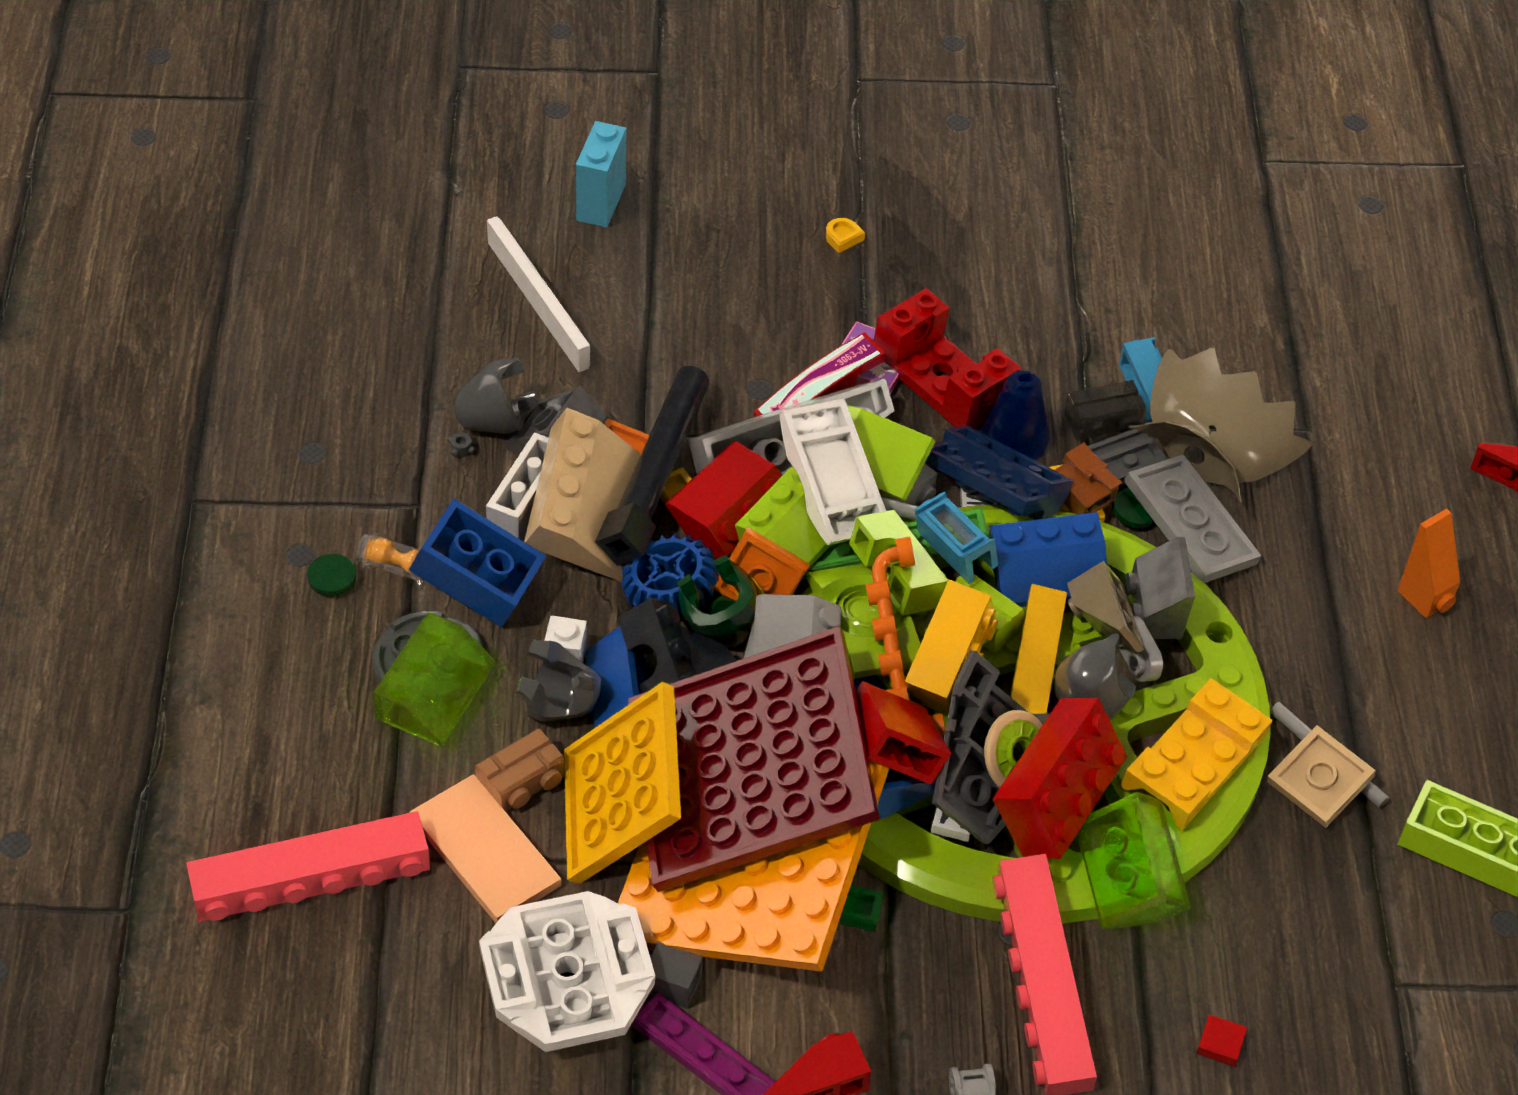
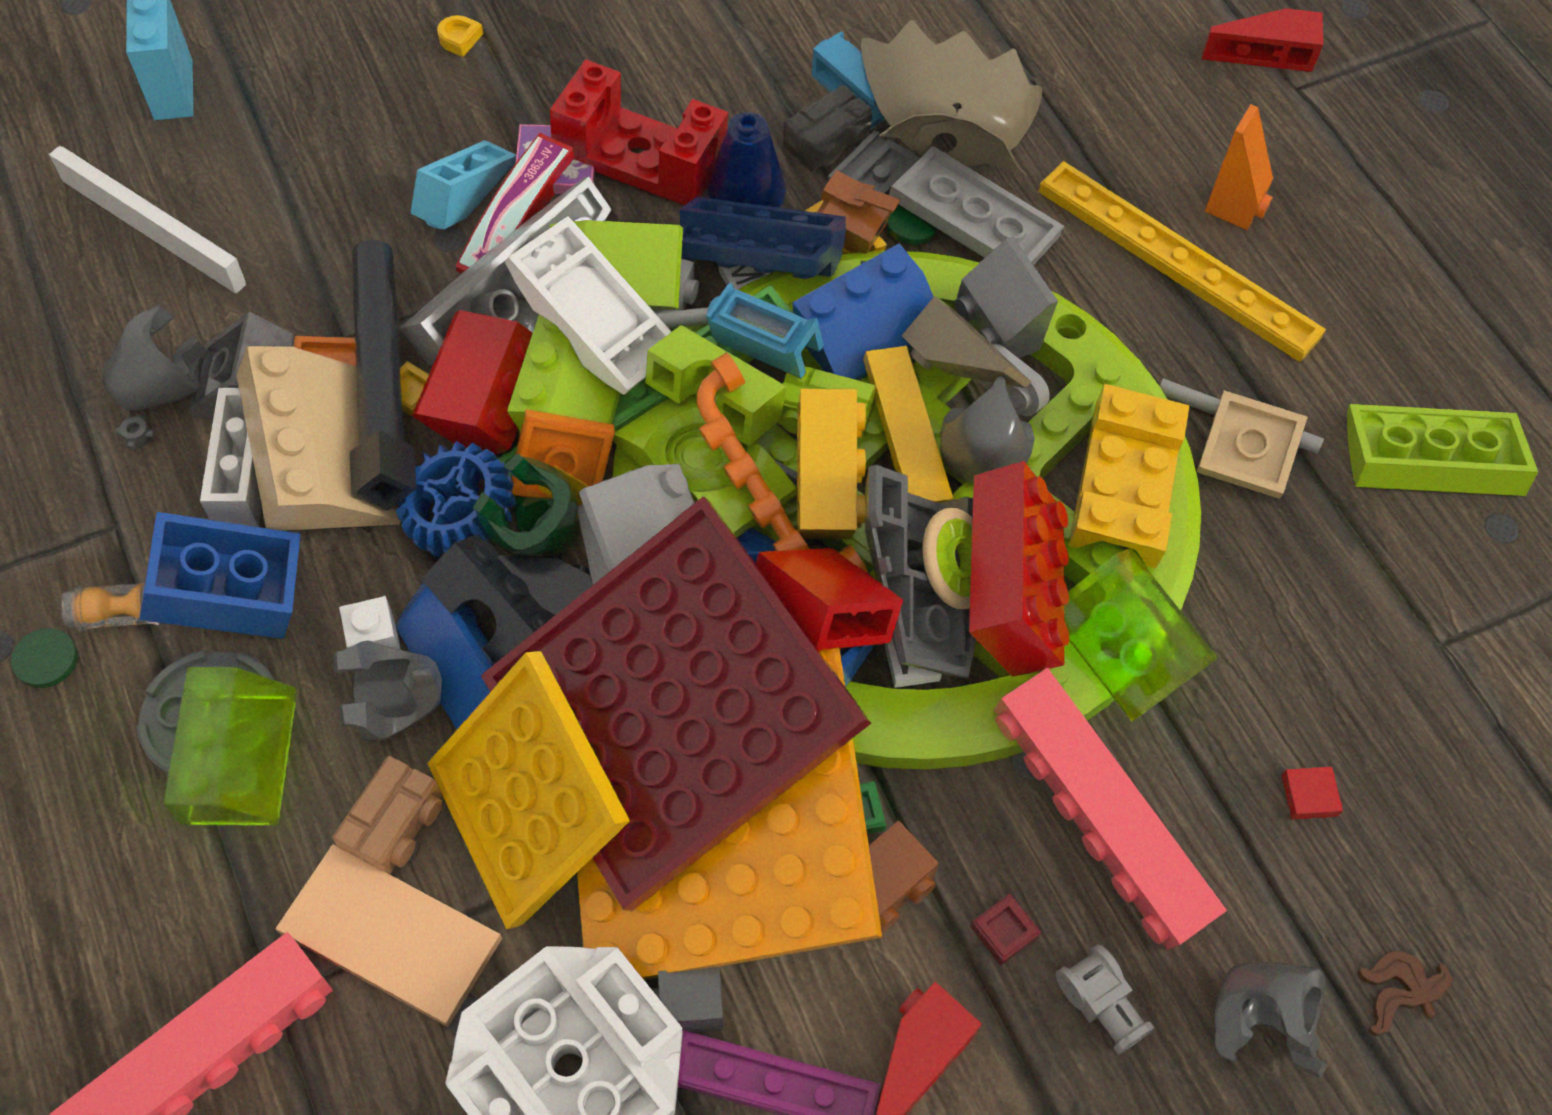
camera: 25 degrees left, 10 degrees up
(781, 350) = (458, 183): none -> medium azure slope
(857, 958) = (900, 872): none -> dark orange brick
(928, 1030) = (1005, 929): none -> dark red tile
(1352, 621) = (1182, 261): none -> yellow tile

